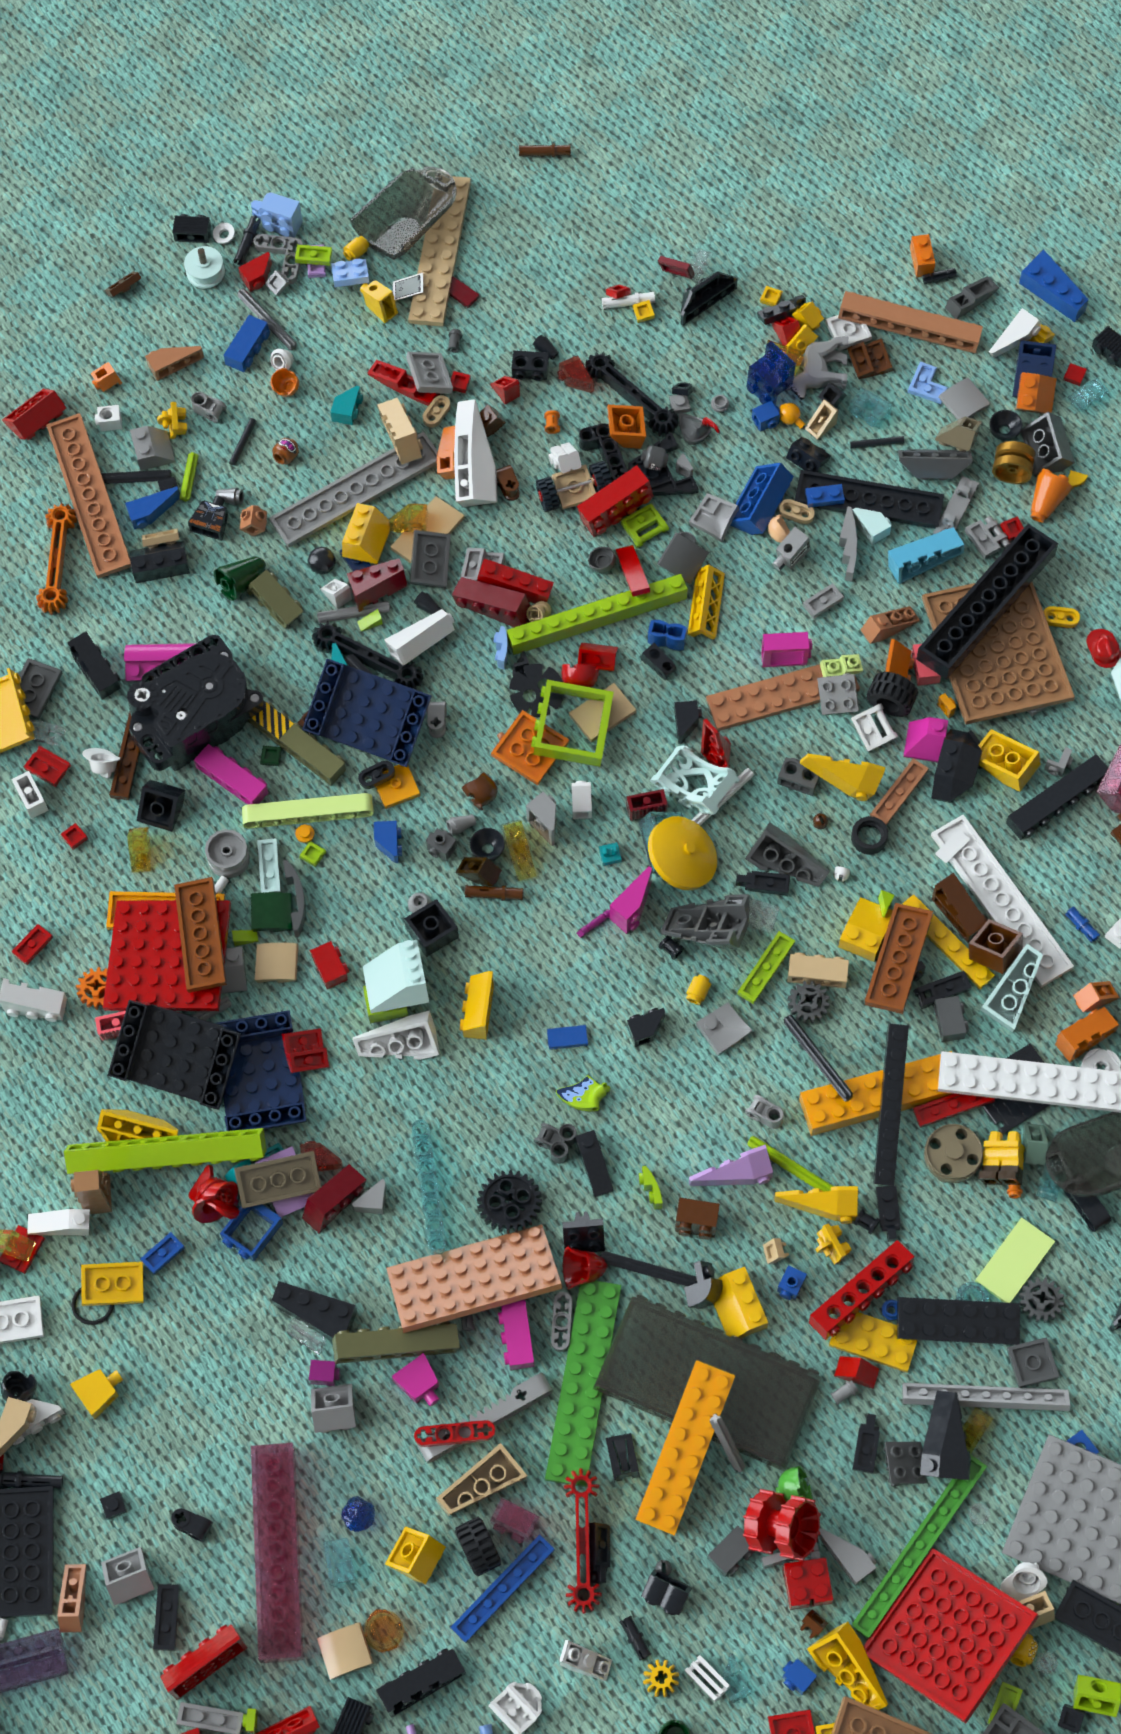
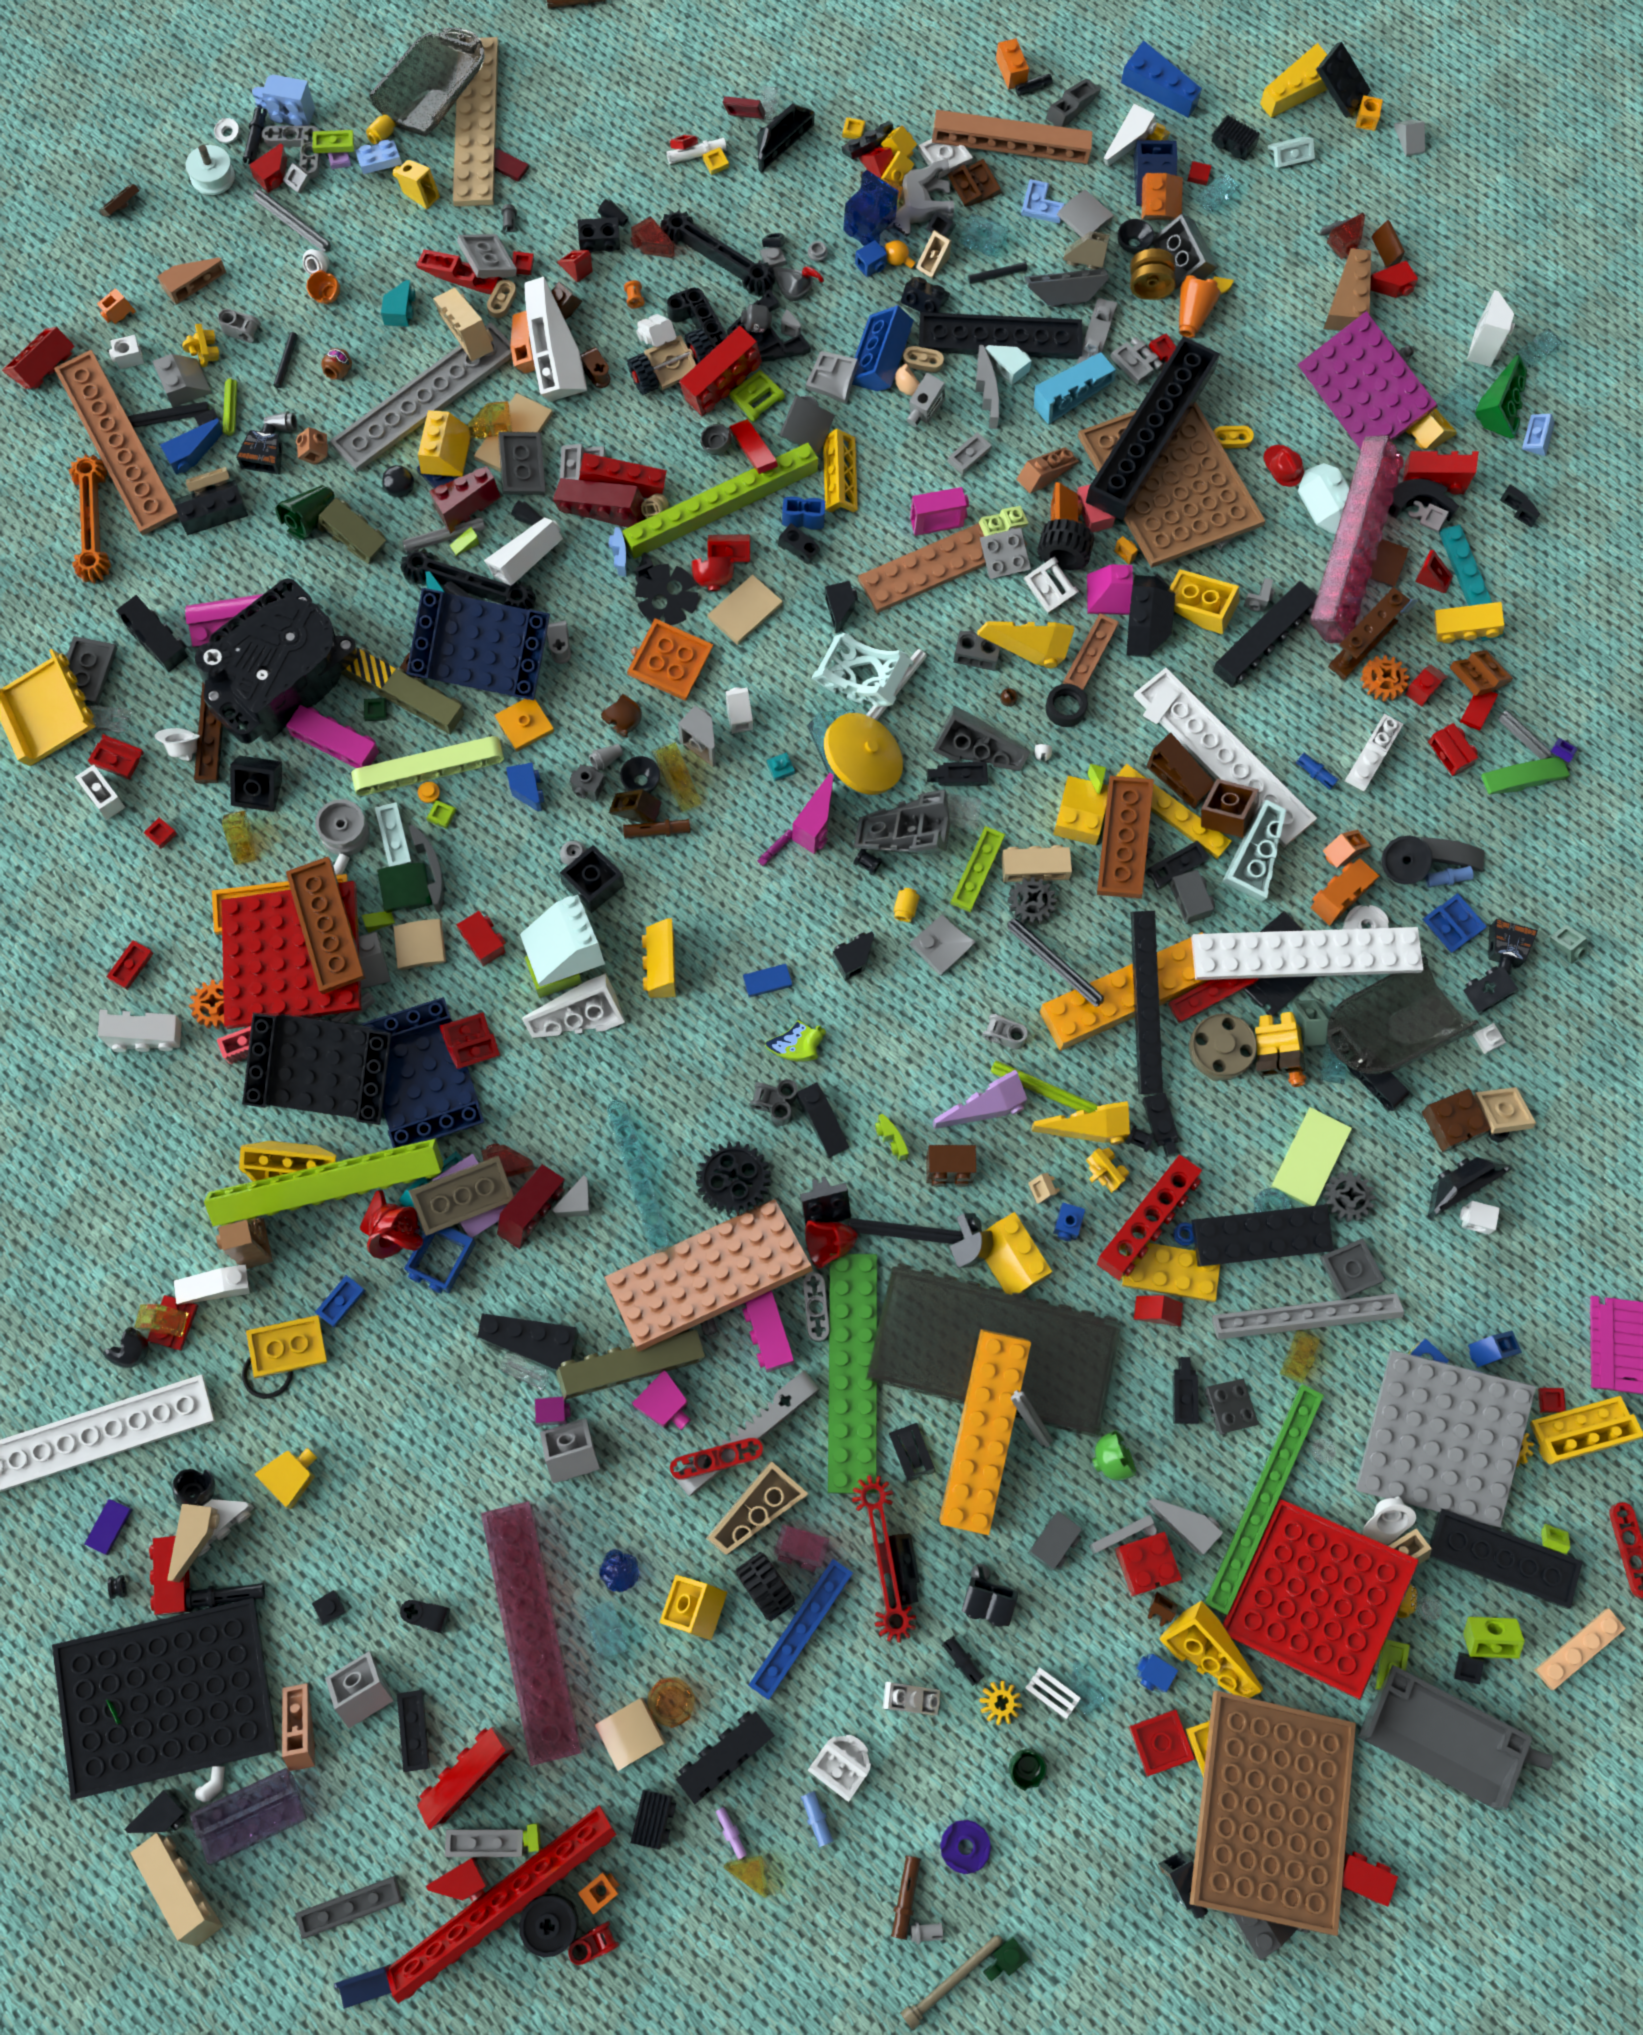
camera: 15 degrees left, 5 degrees up
(191, 228) = (189, 129): black brick -> none
(246, 343) = (272, 249): blue brick -> none
(337, 593) = (422, 515): white slope -> none
(376, 774) = (500, 713): black plate -> none
(408, 286) = (447, 164): sticker -> none
(565, 753) = (708, 659): lime window -> none
(627, 425) = (719, 286): orange slope -> none
(643, 803) = (808, 705): dark red brick -> none
(715, 746) = (879, 628): red wedge -> none
(782, 1524) = (1099, 1502): red piece -> none
(824, 495) = (952, 337): blue plate -> none
(844, 1392) = (1149, 1336): light grey pin -> none
(945, 1445) = (1275, 1379): black wedge -> none

